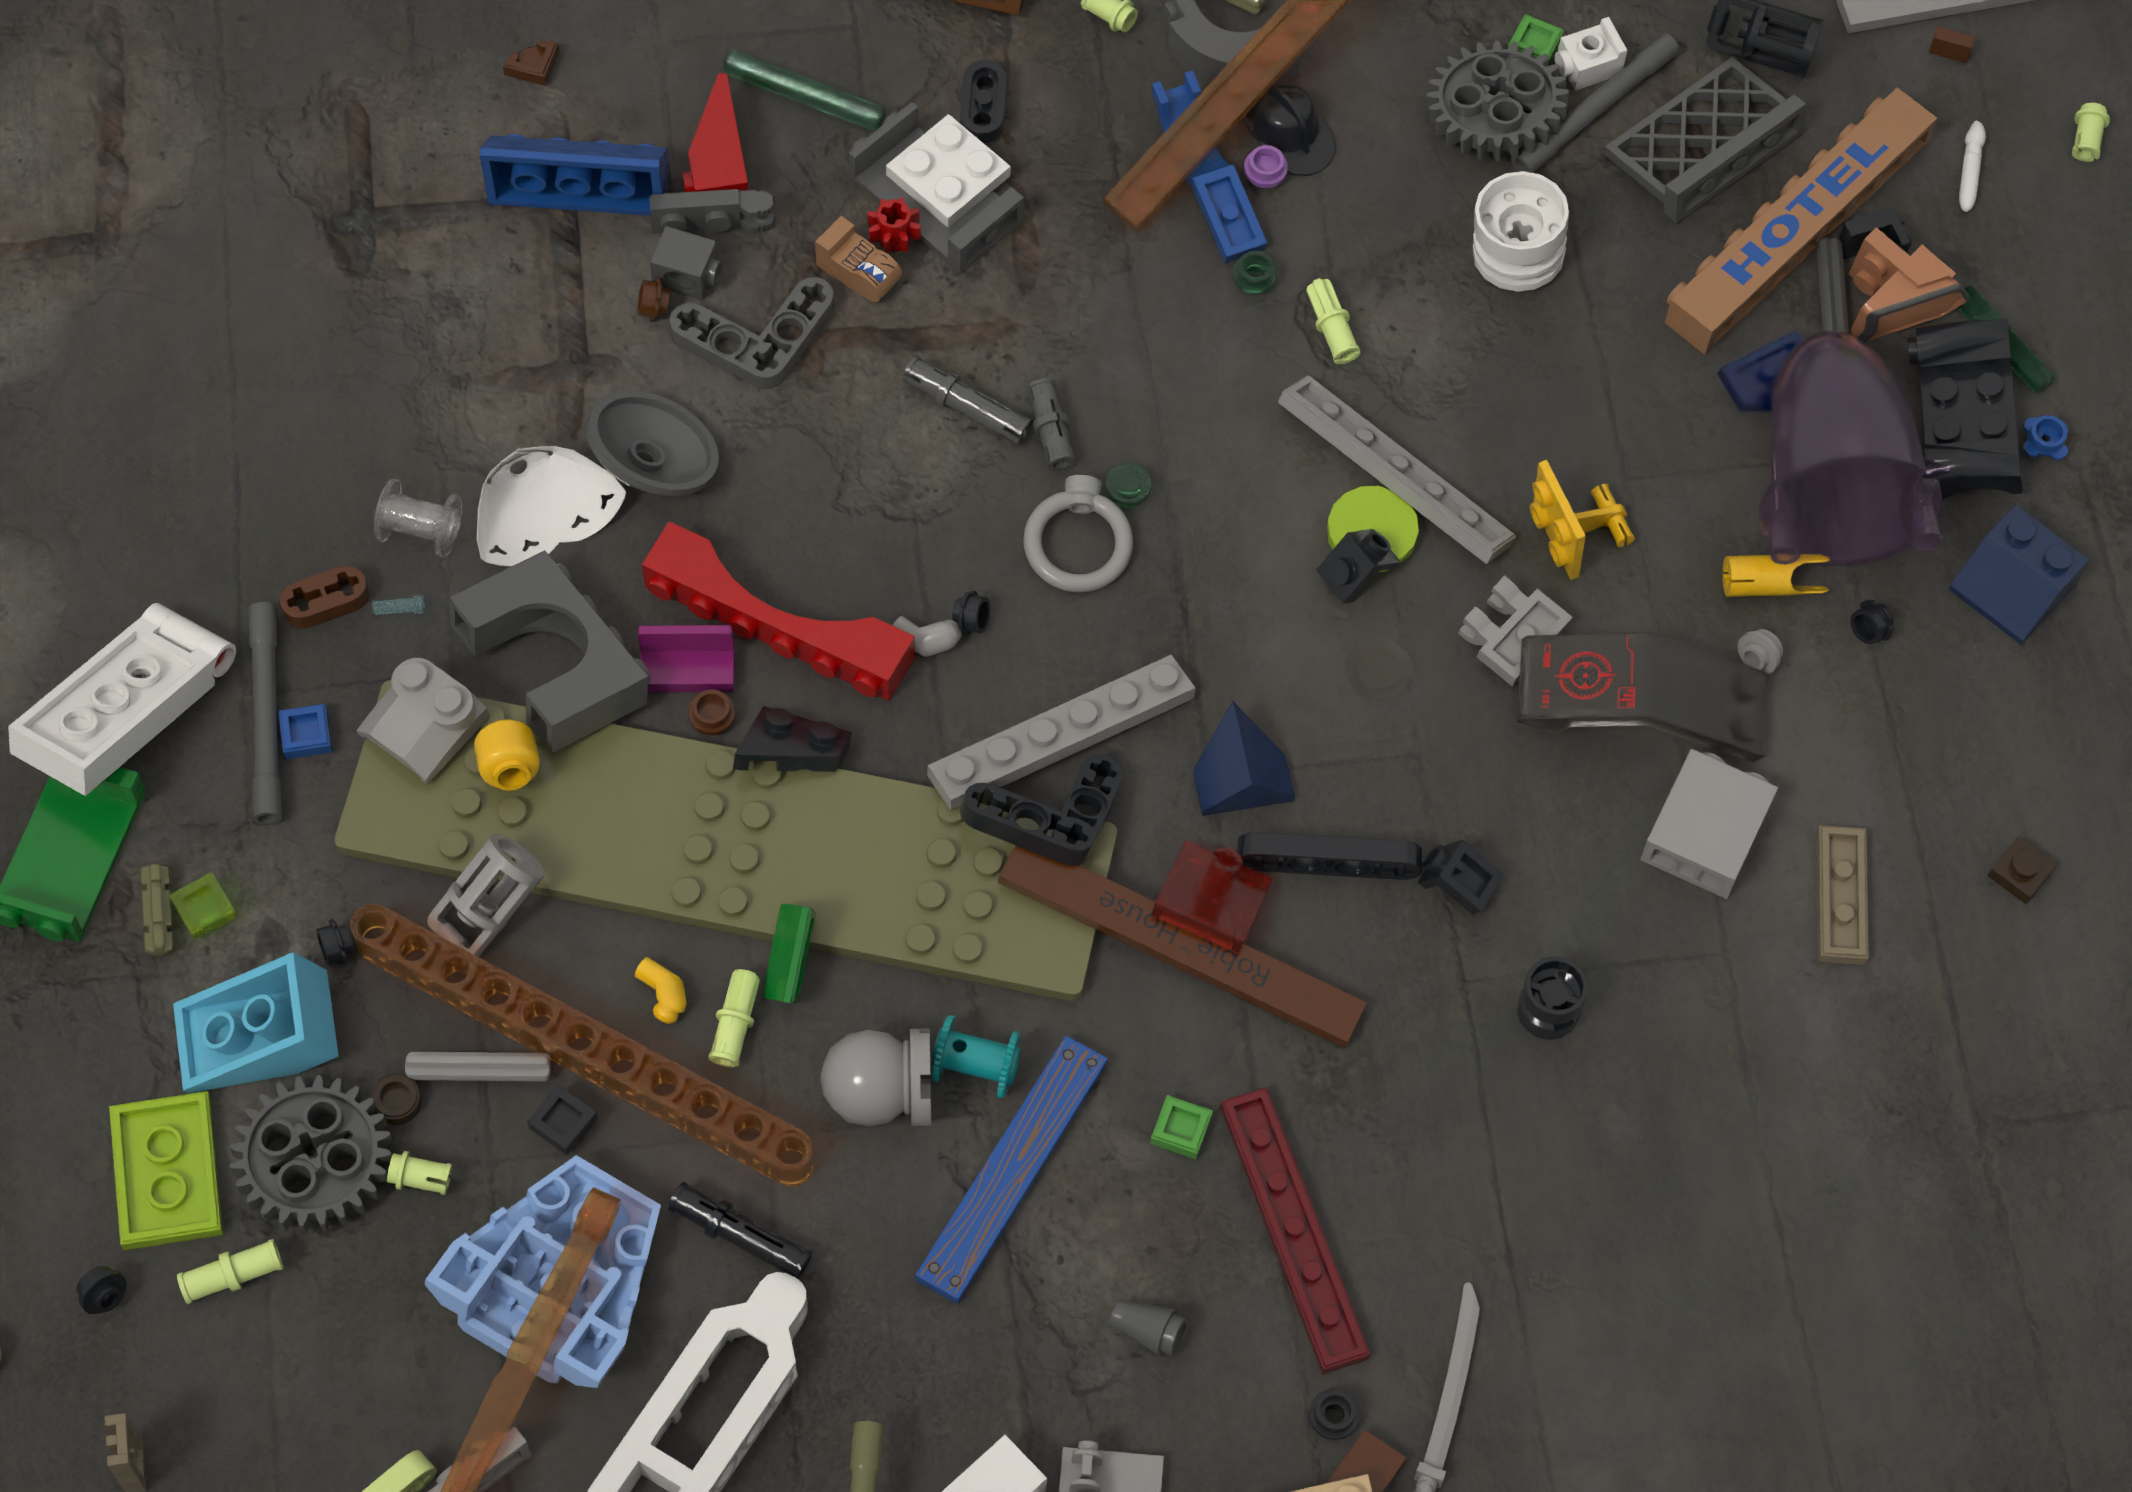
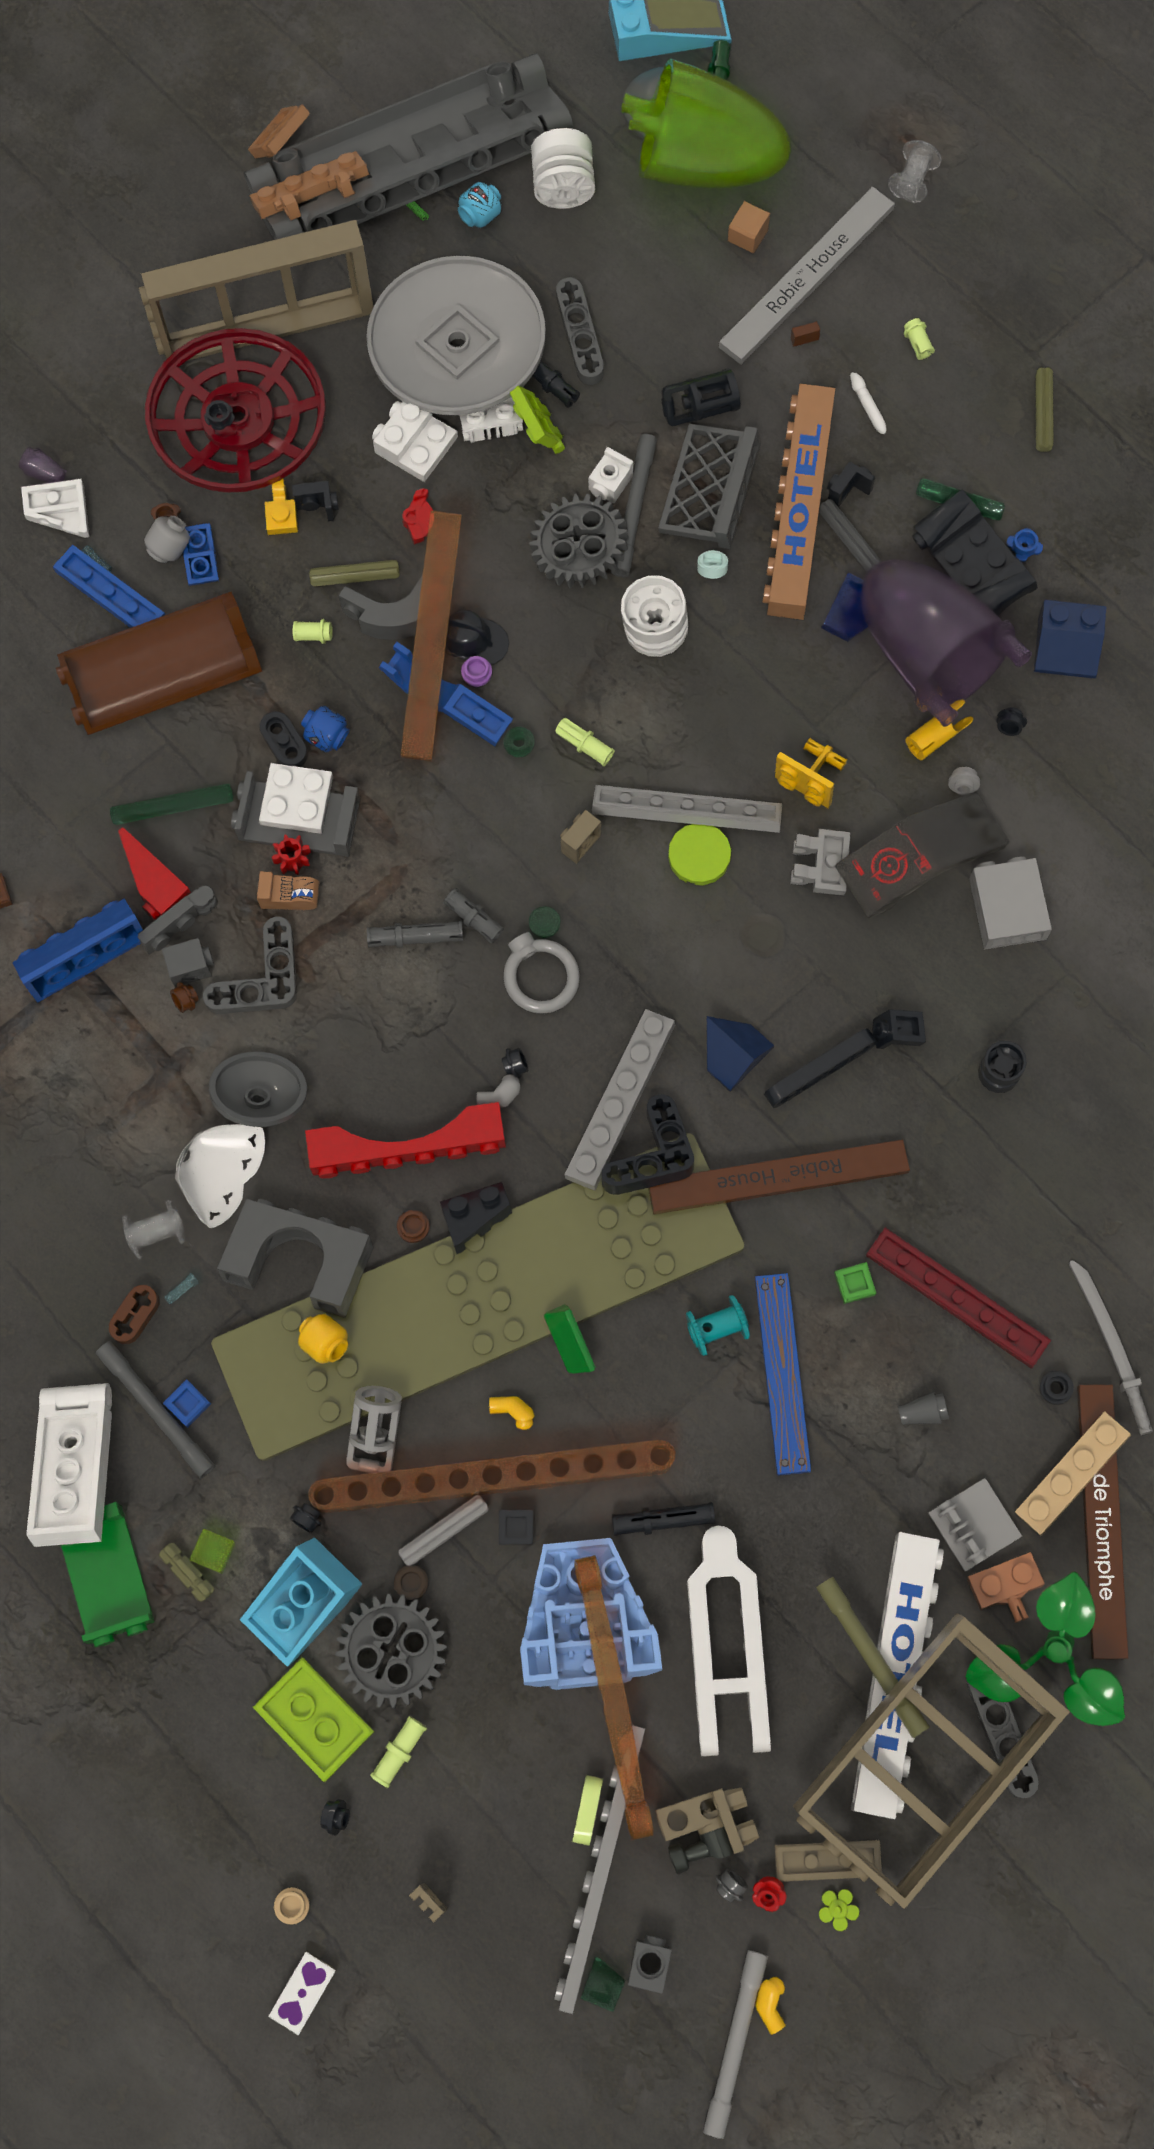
camera: 30 degrees left, 10 degrees up
(419, 1173) = (460, 1617): yellowish green pin -> none
(423, 718) = (254, 1350): light grey slope -> none
(688, 657) = (376, 1204): magenta panel -> none
(734, 1018) = (566, 1398): yellowish green axle -> none
(876, 1077) = (676, 1378): light grey tile -> none
(1039, 118) = (325, 729): none -> blue head
(1212, 895) = (776, 1138): clear red tile -> none
(1243, 416) = (580, 836): none -> dark tan piece
(1356, 563) = (709, 882): black bracket -> none
(1538, 34) = (569, 484): bright green tile -> none
(1639, 224) = (712, 564): none -> light aqua tile
(1842, 895) = (1106, 894): dark tan tile -> none
(1903, 287) = (887, 506): nougat piece -> none

